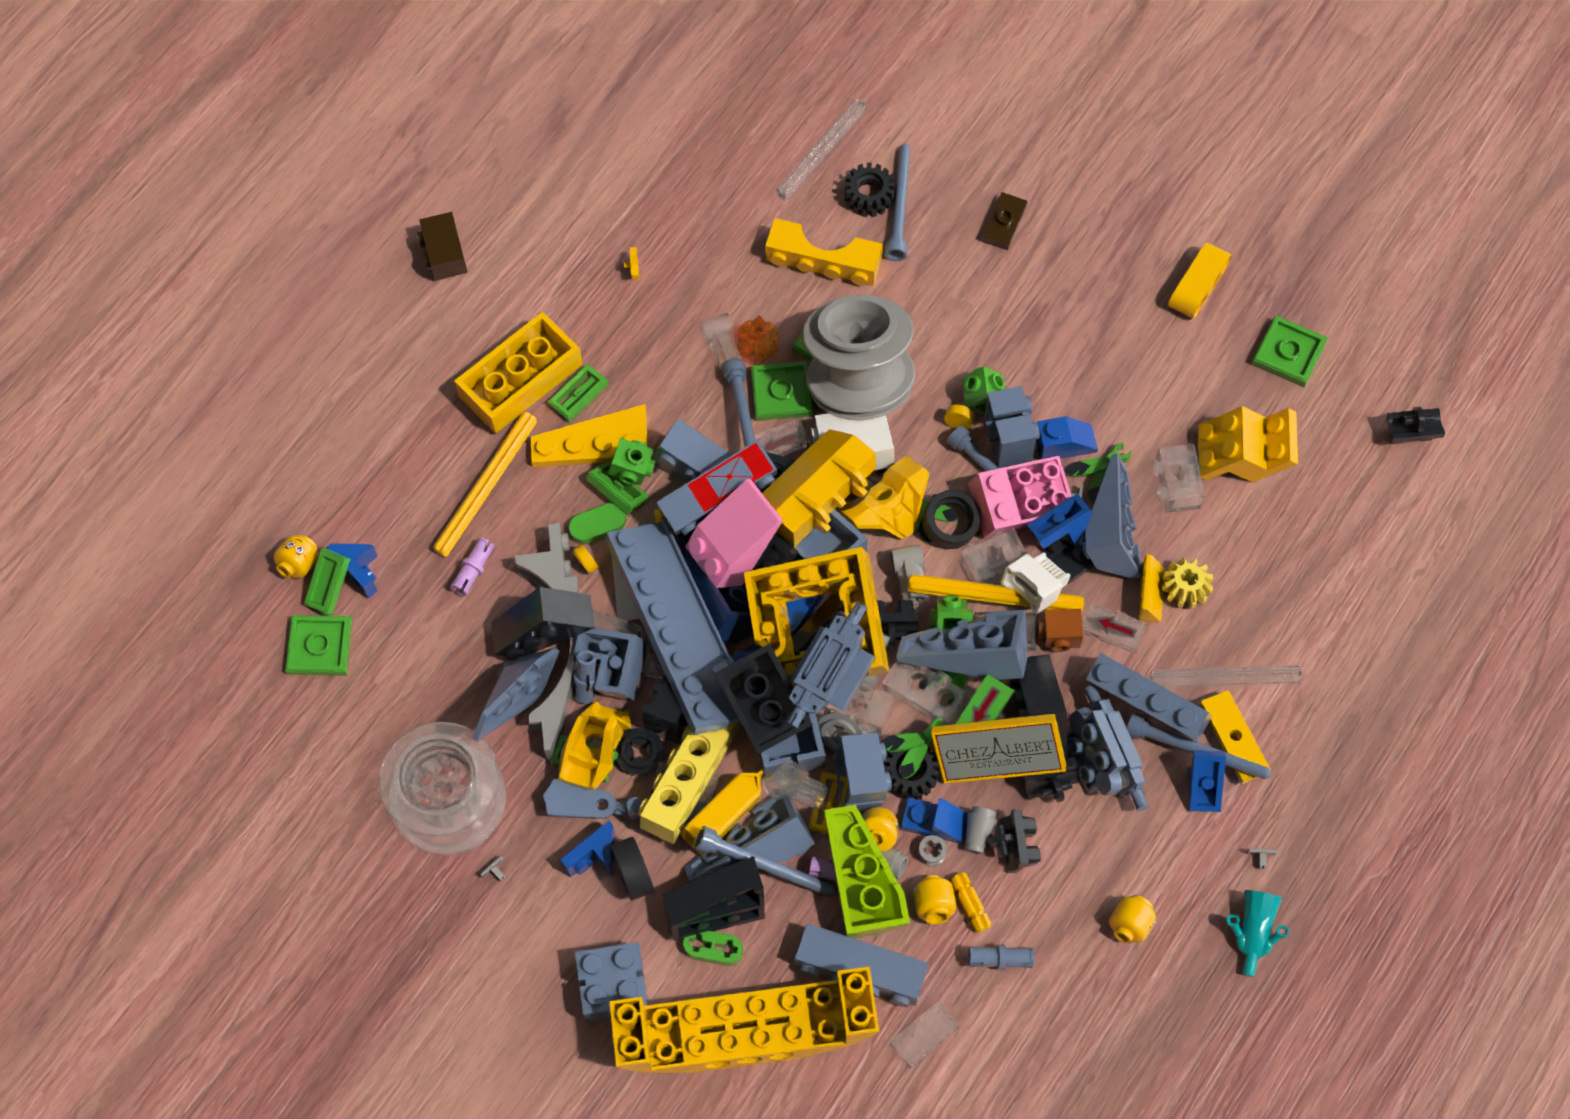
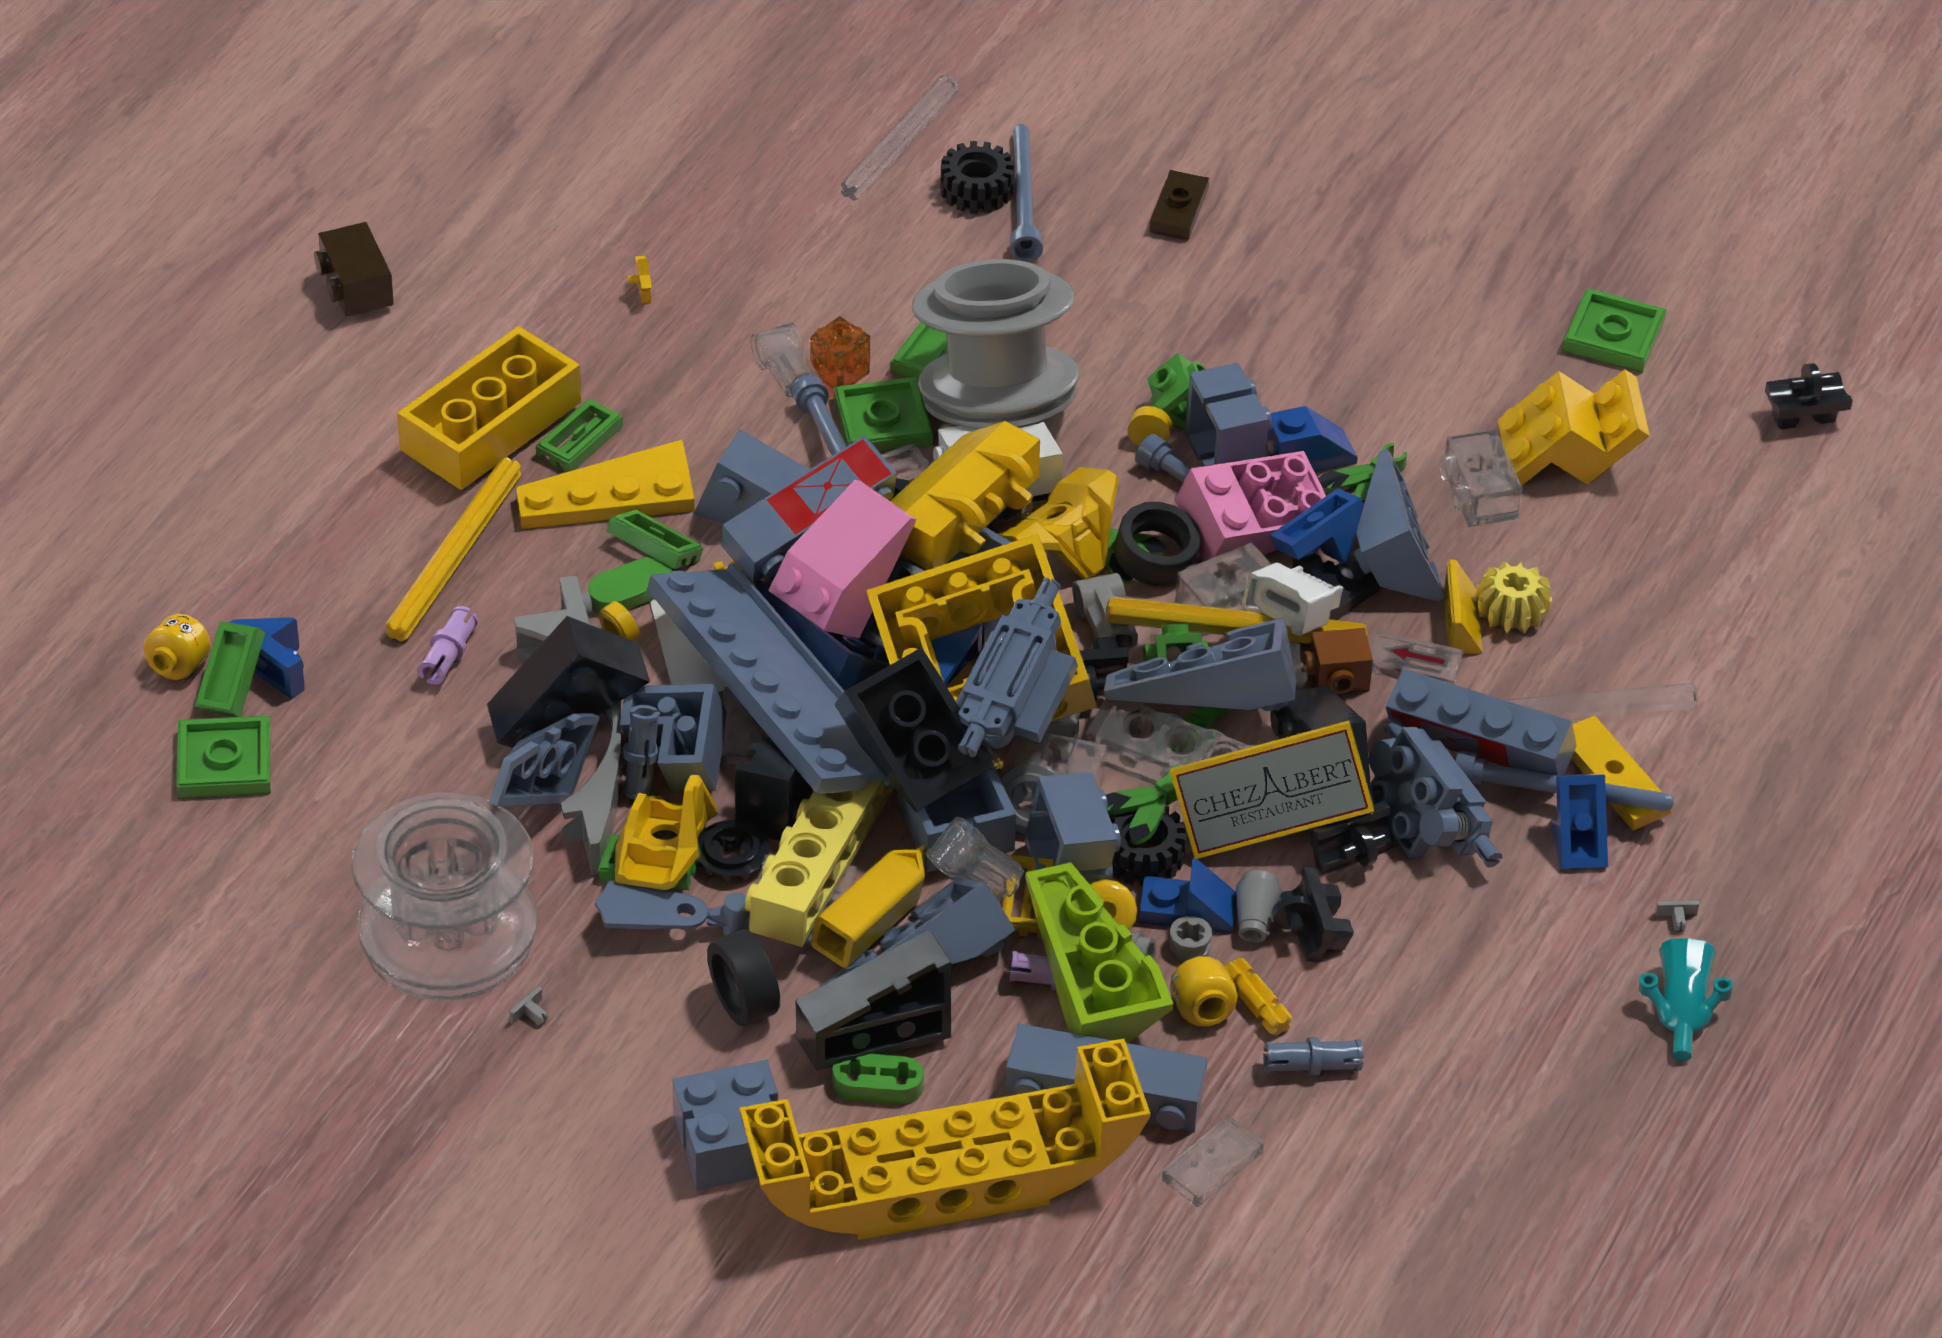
camera: 10 degrees left, 20 degrees down
(593, 847) = (676, 967): blue slope -> none
(632, 462) = (674, 498): bright green brick -> none
(710, 841) = (861, 920): sand blue piece -> none
(854, 262) = (875, 248): yellow arch -> none
(987, 701) = (1248, 726): bright green tile -> none
(1132, 919) = (1503, 992): yellow head -> none
(1199, 280) = (1472, 253): yellow beam -> none

